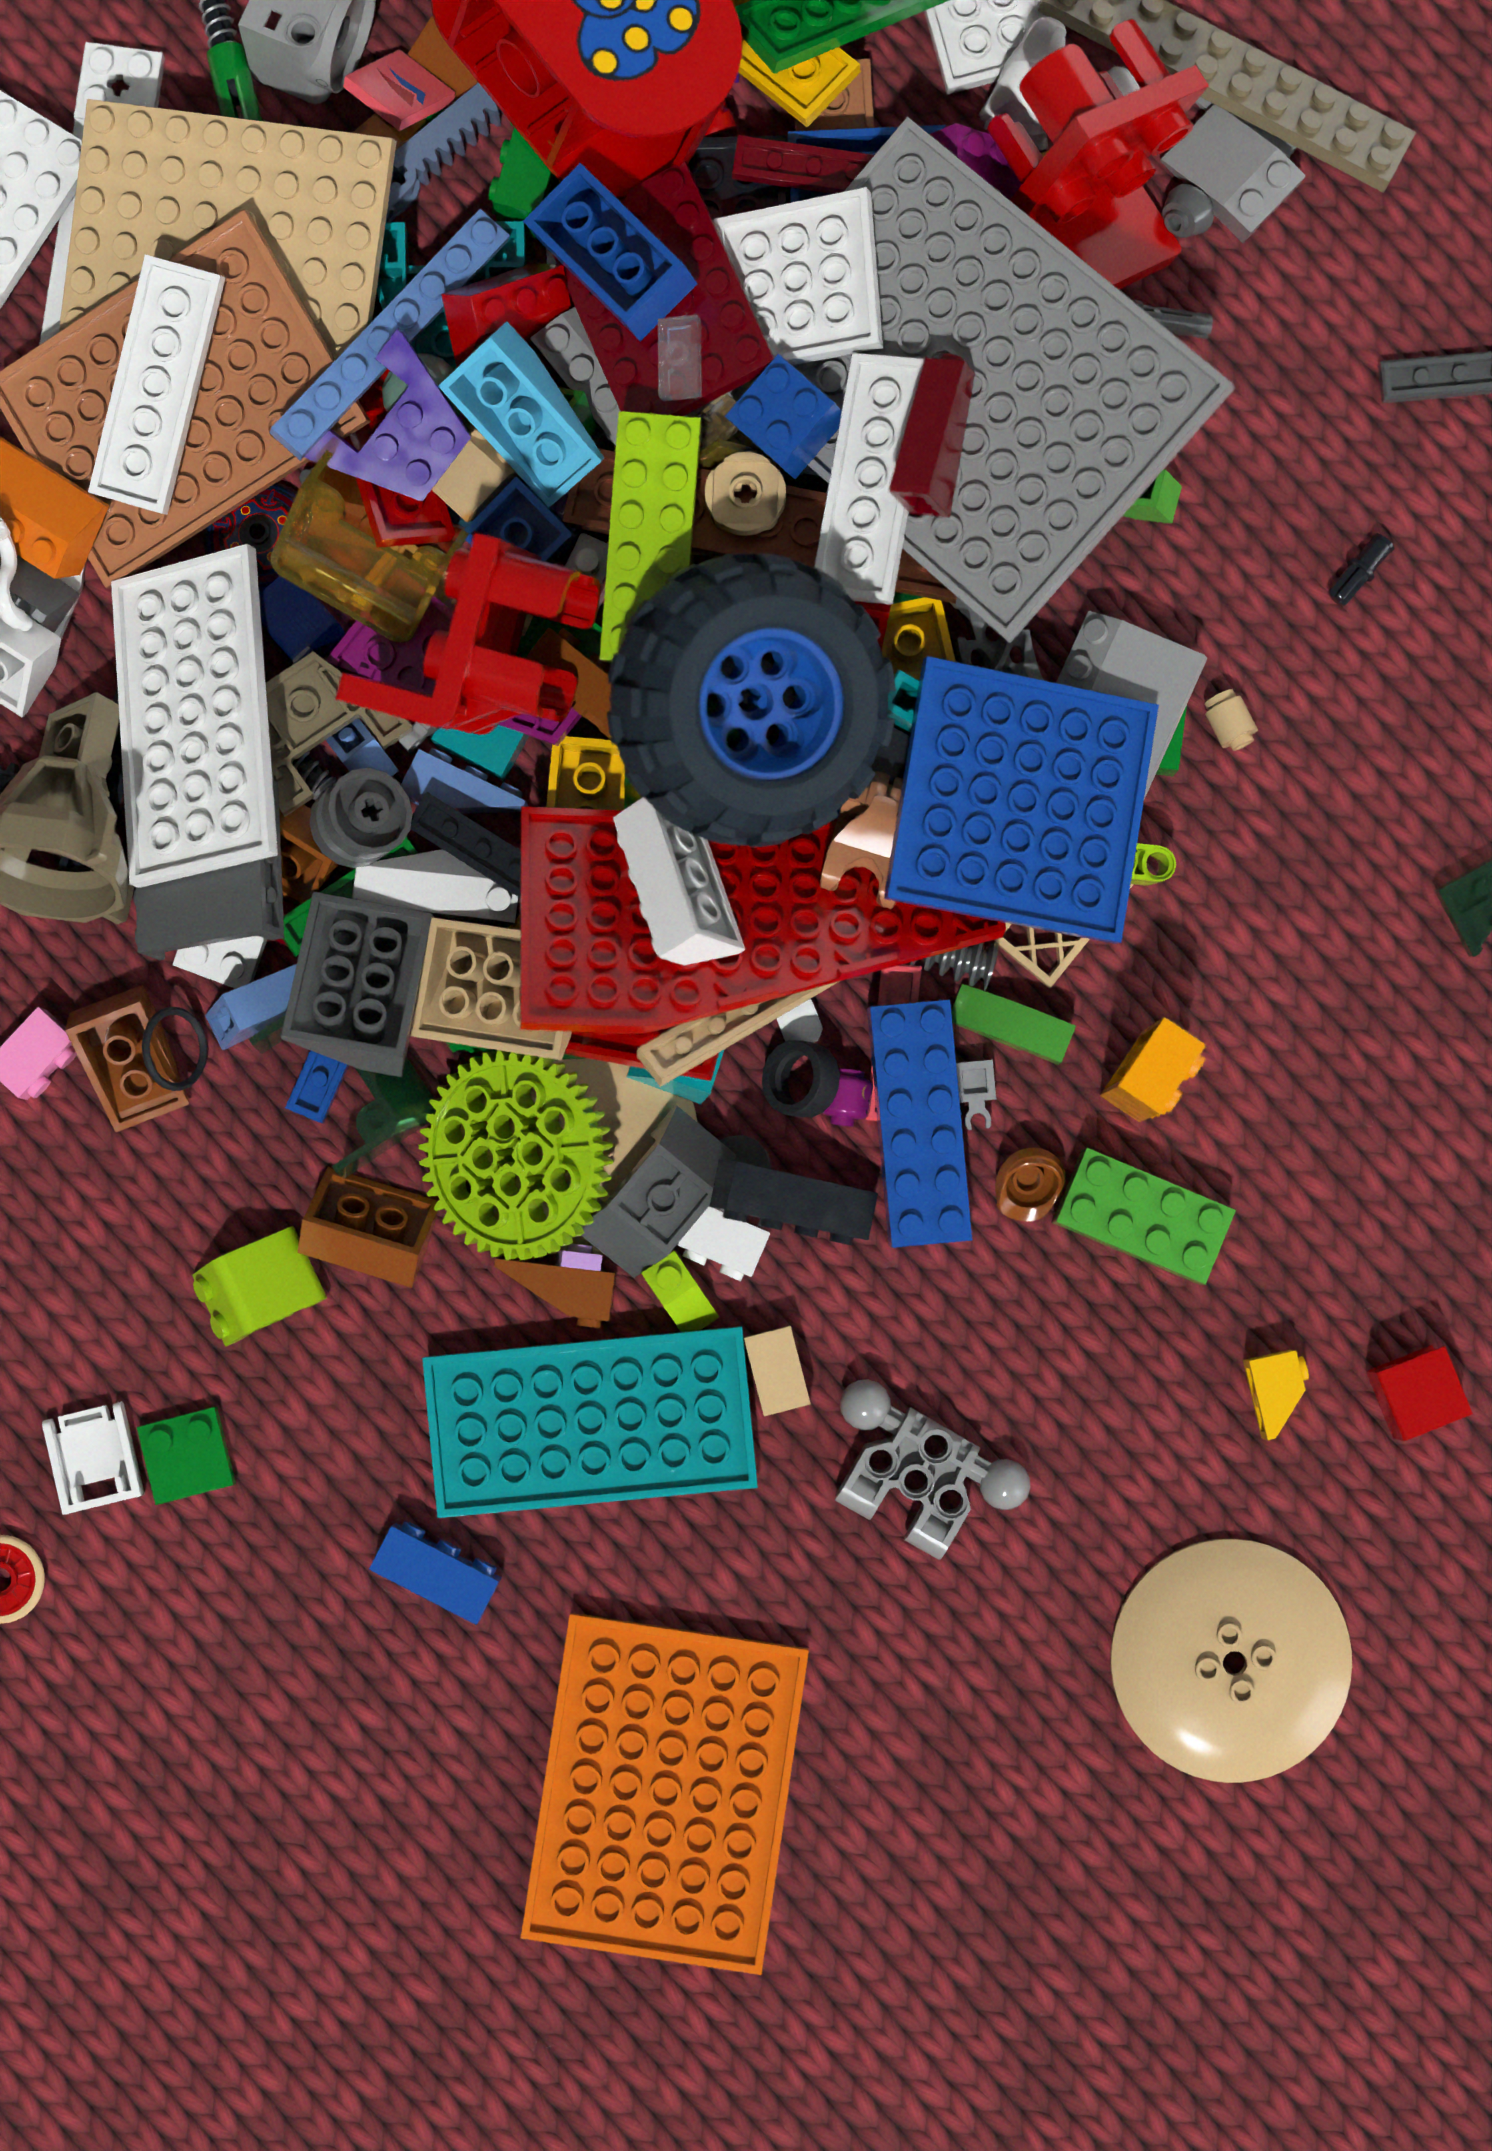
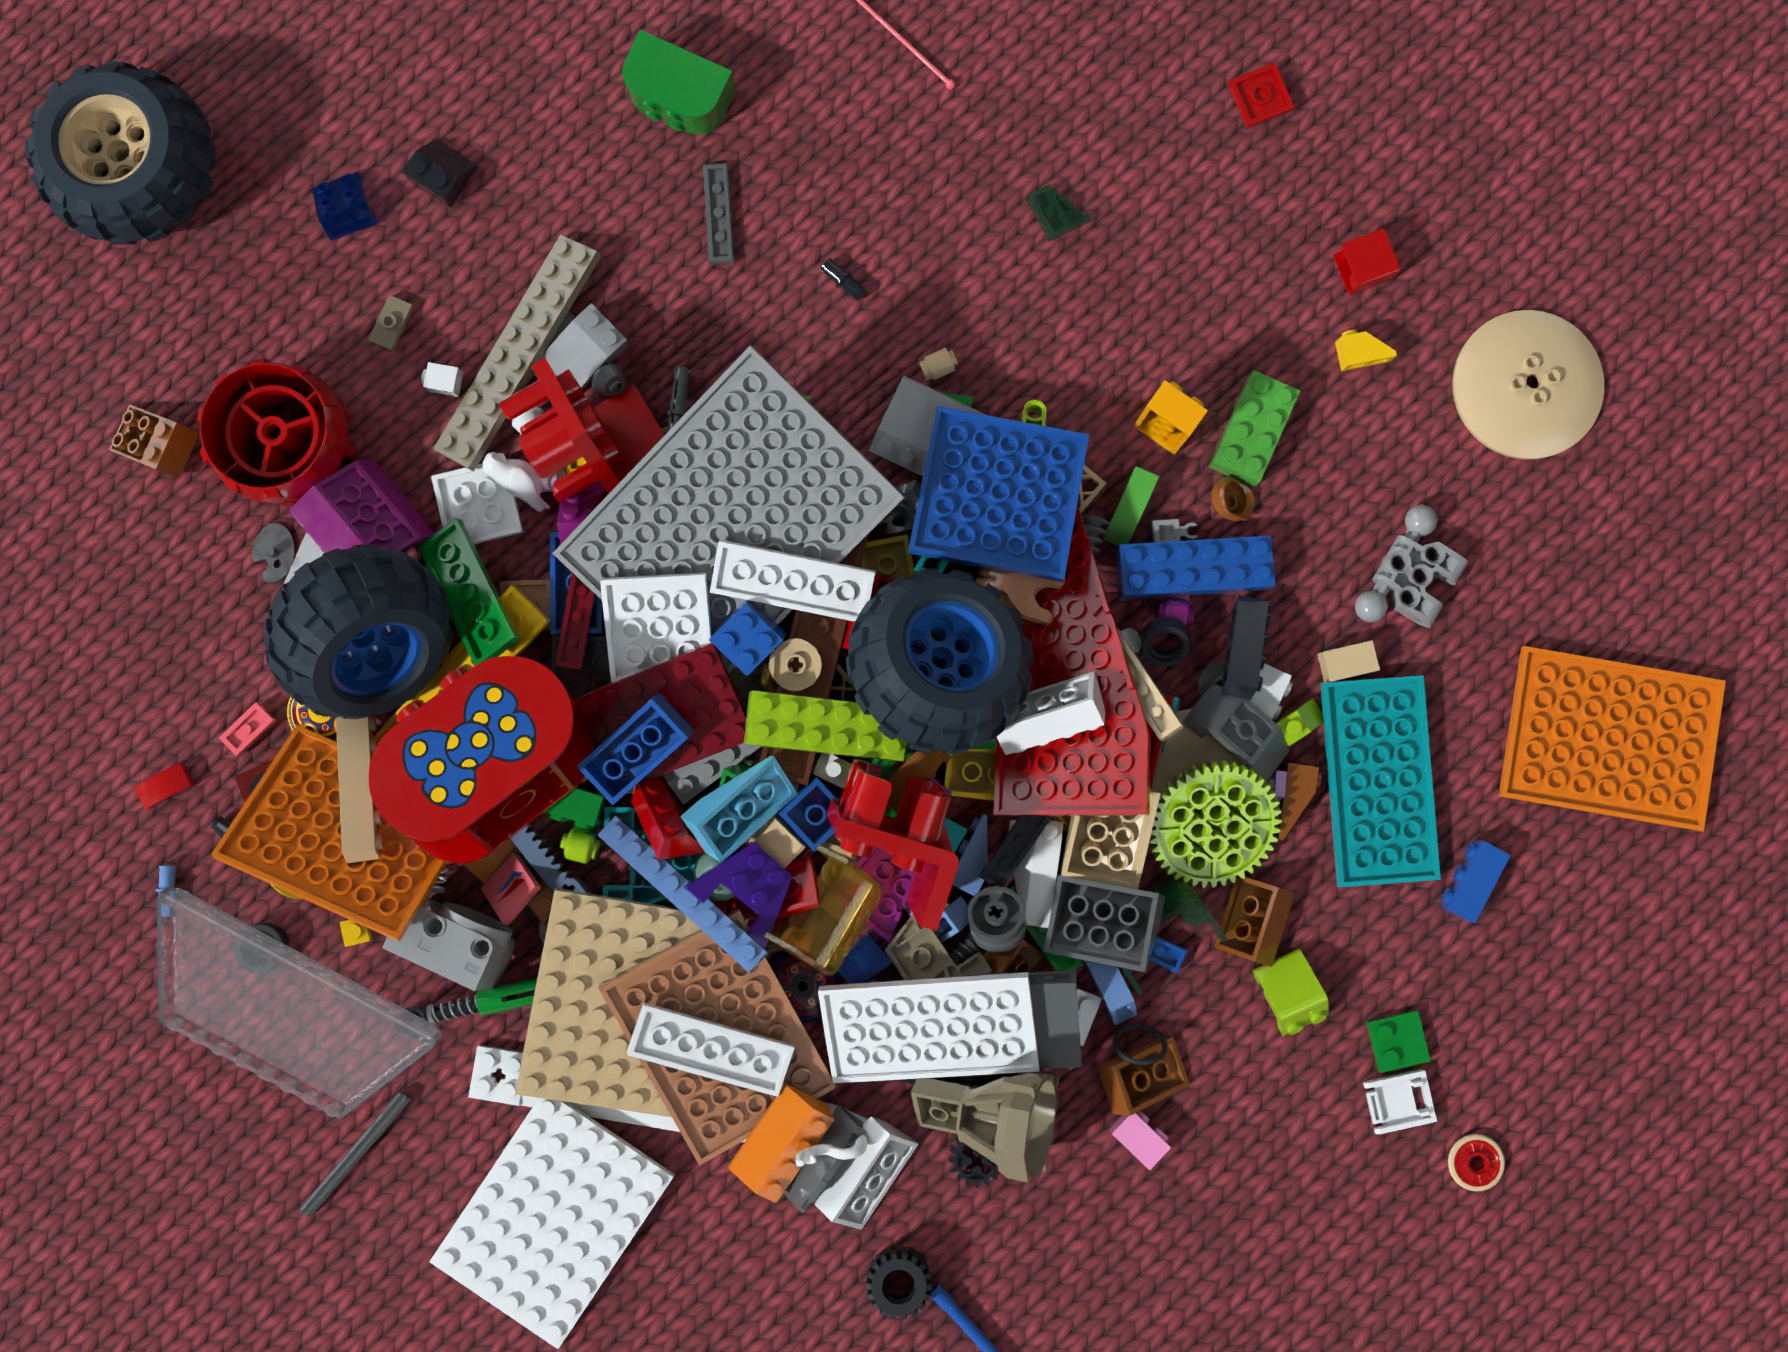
camera: 90 degrees left, 0 degrees up
(465, 192) = (580, 845): none -> lime head
(679, 357) = (707, 704): clear plate -> none
(934, 437) = (770, 539): dark red slope -> none

